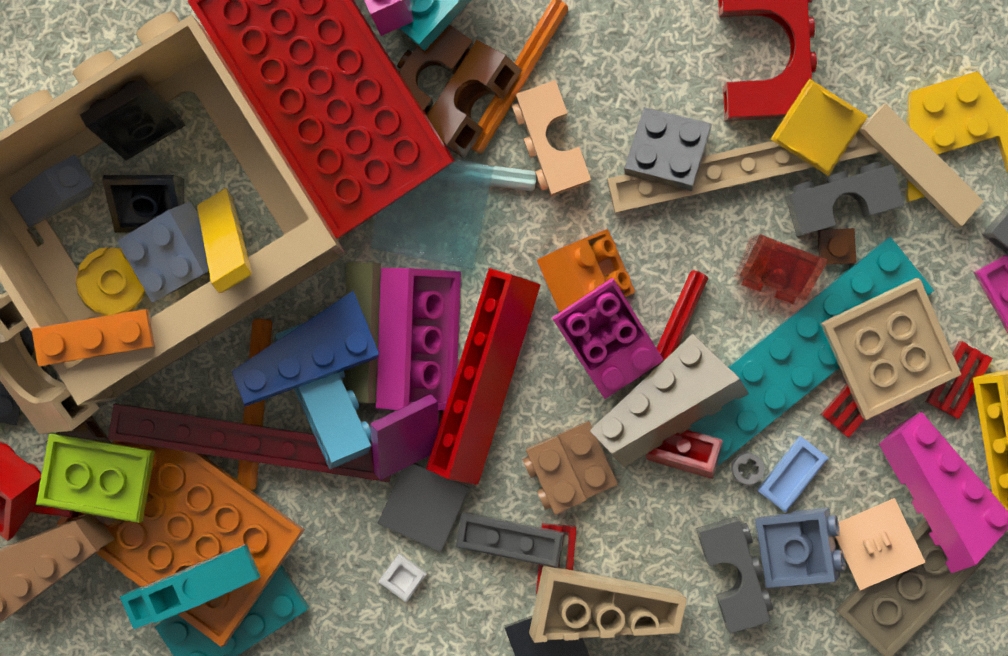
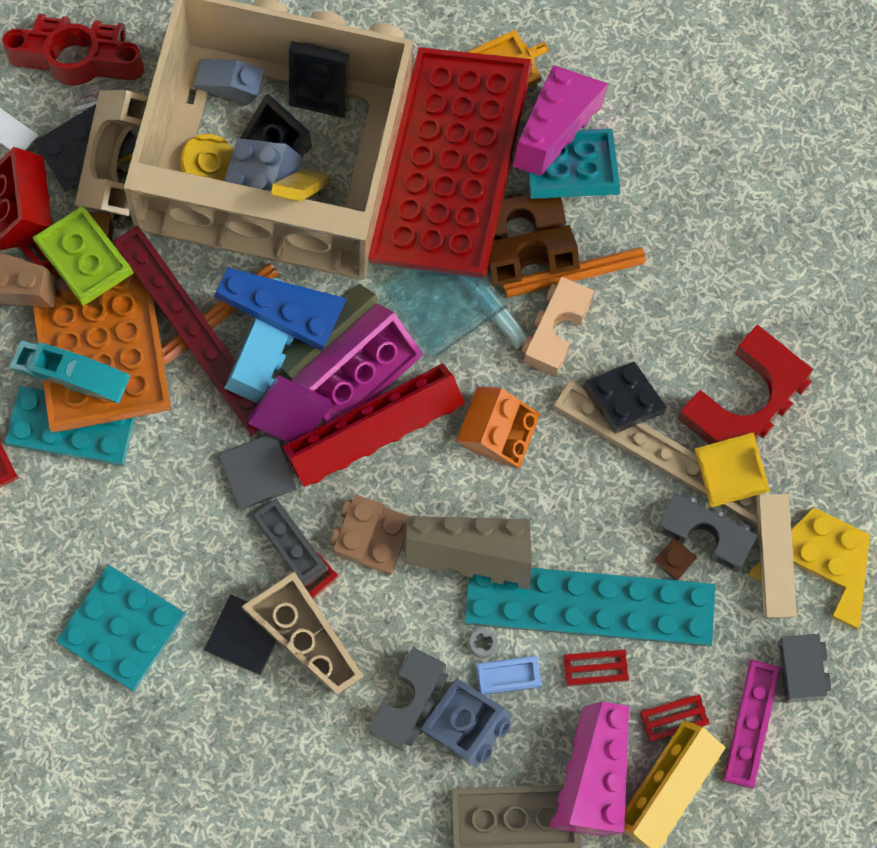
camera: 40 degrees right, 15 degrees down
(93, 337) = (172, 158): orange plate -> none
(402, 577) = (199, 503): white tile -> none
(608, 338) = (473, 467): dark pink slope -> none
(682, 313) = (539, 505): red axle -> none
(689, 452) = (454, 594): red slope -> none
(779, 269) = (624, 532): clear red slope -> none
(878, 544) = (519, 770): light nougat piece -> none
(891, 348) = (647, 649): tan plate -> none

